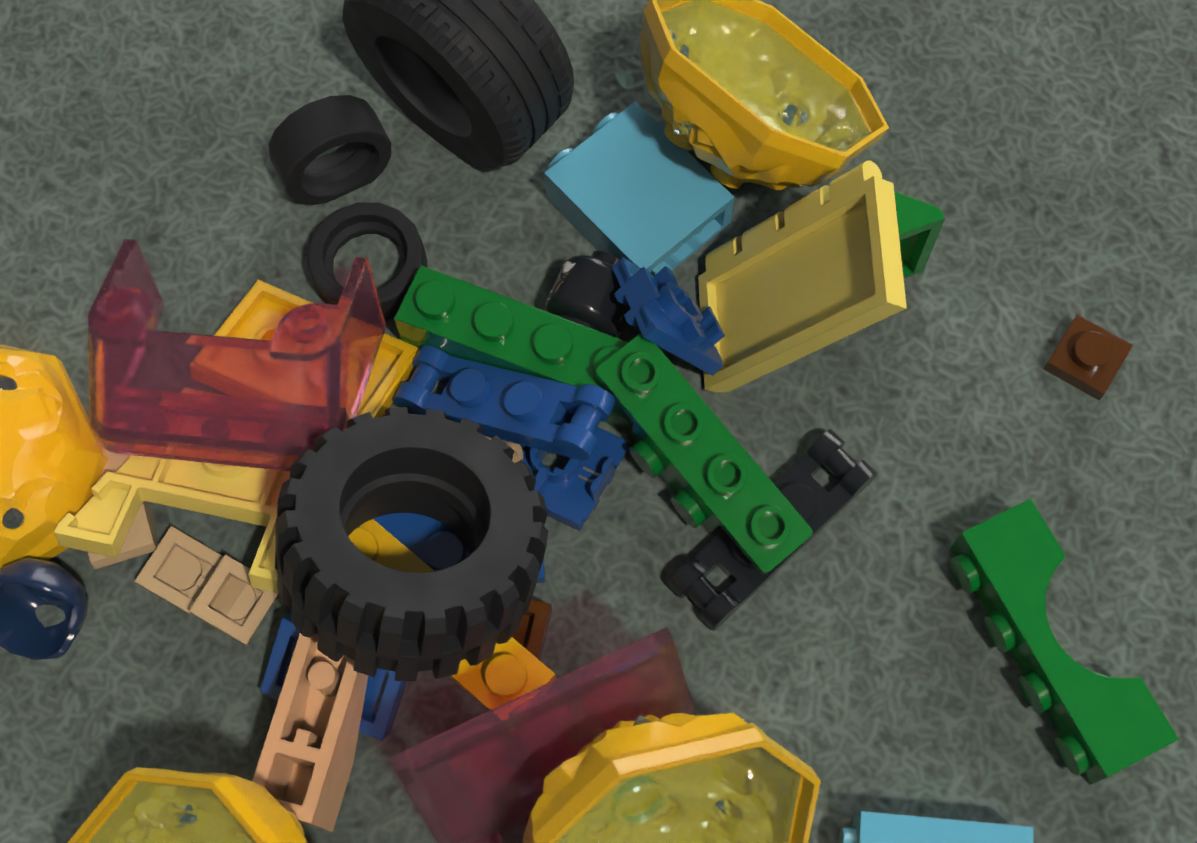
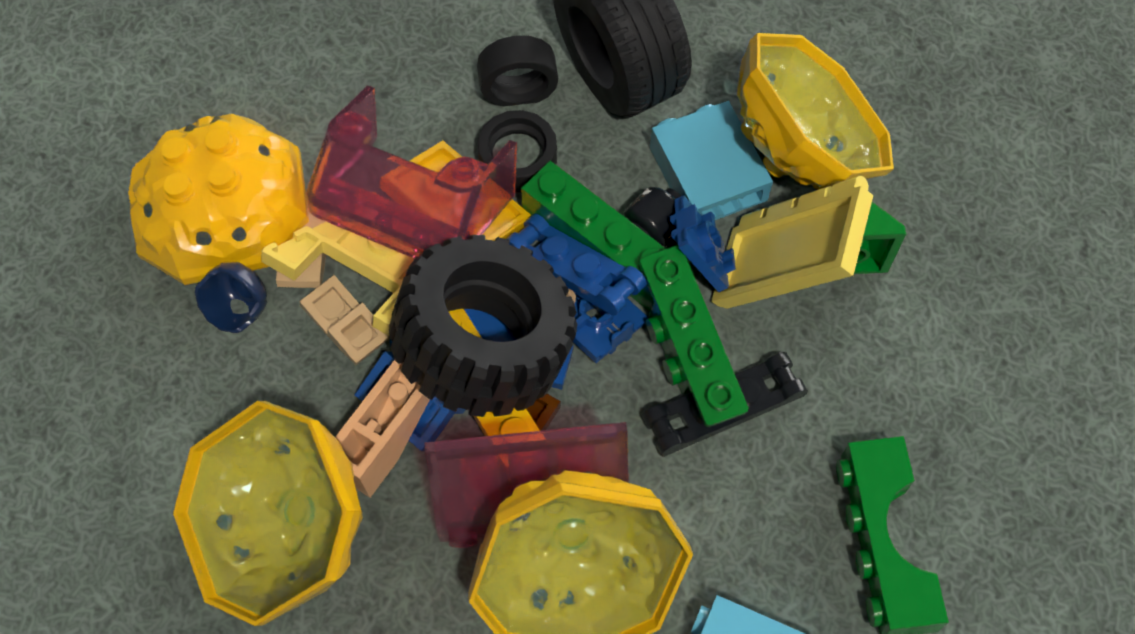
camera: 15 degrees right, 5 degrees down
(1088, 357) = (981, 363): reddish brown plate -> none

